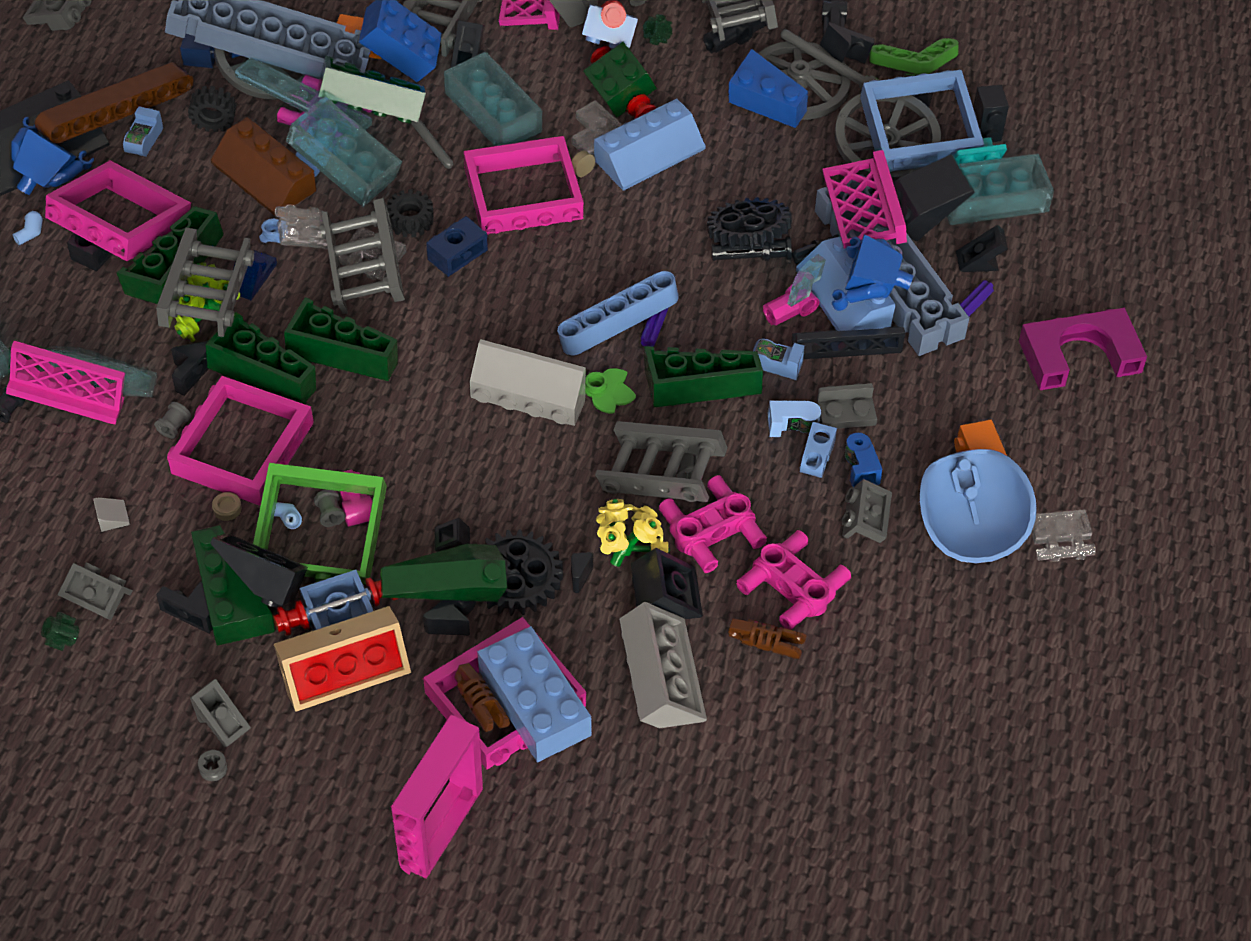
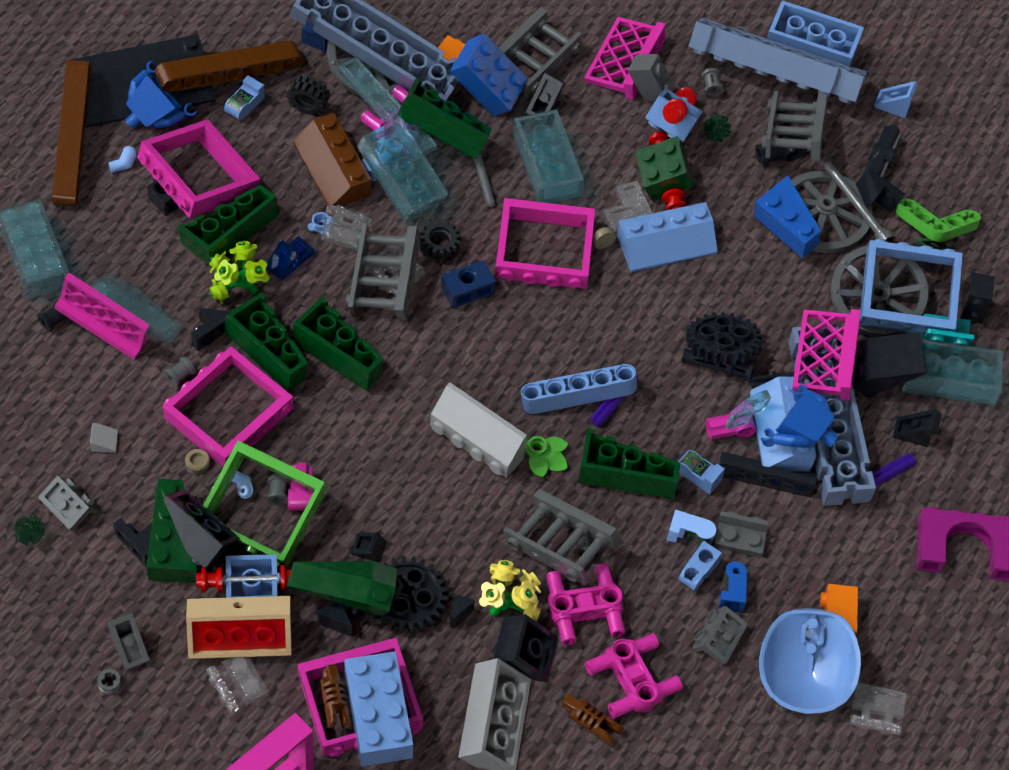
camera: 15 degrees right, 5 degrees up
(184, 267) = (228, 244): dark grey fence -> none
(366, 714) = (244, 678): none -> clear plate

